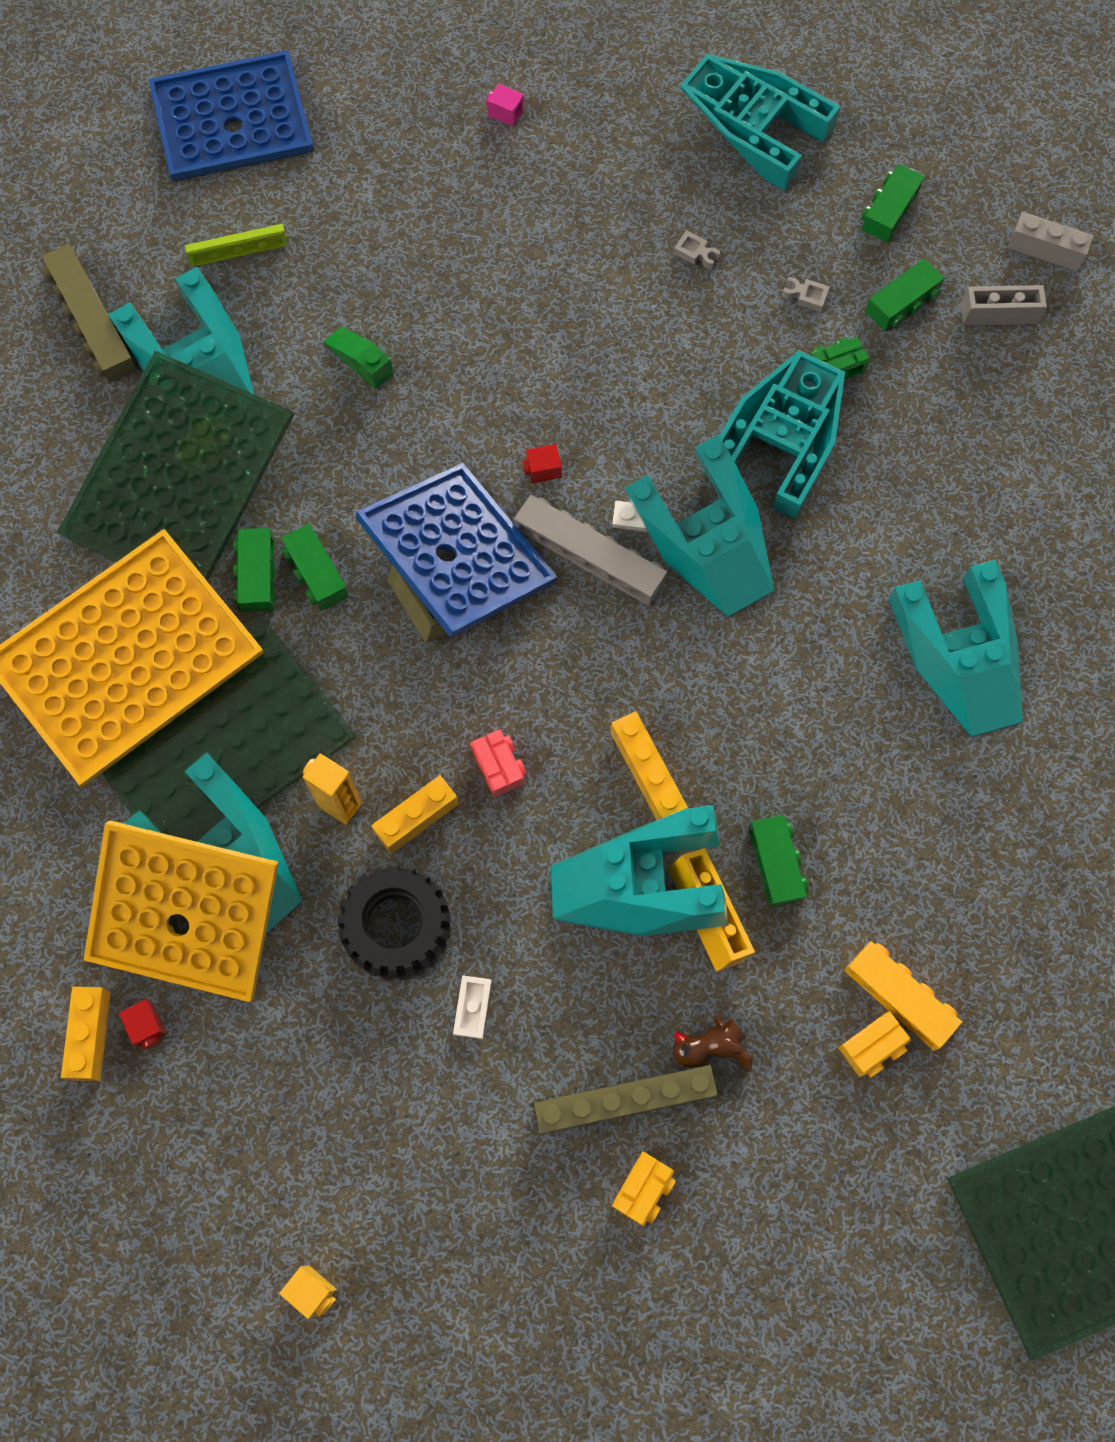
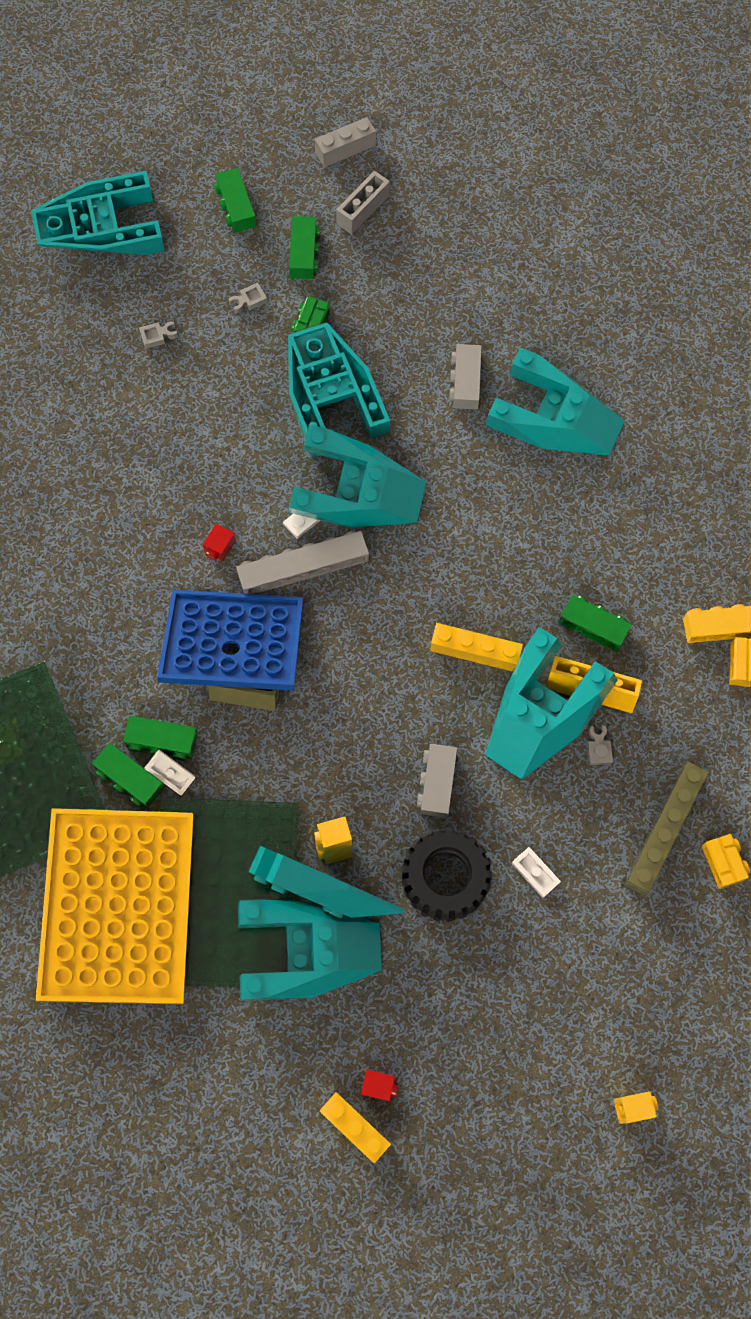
camera: 50 degrees left, 0 degrees up
(156, 875) = (293, 1001): yellow plate -> none
(277, 813) = (335, 896): none -> teal wedge
(287, 601) = (170, 772): none -> white plate
(361, 356) = (34, 590): green slope -> none
(415, 814) = (385, 807): yellow brick -> none
(484, 841) = (437, 780): none -> light grey brick
(498, 763) = (394, 731): coral brick -> none
(652, 971) = (599, 750): none -> light grey plate
(718, 1041) = (674, 745): reddish brown animal -> none
(918, 538) = (465, 376): none -> light grey brick

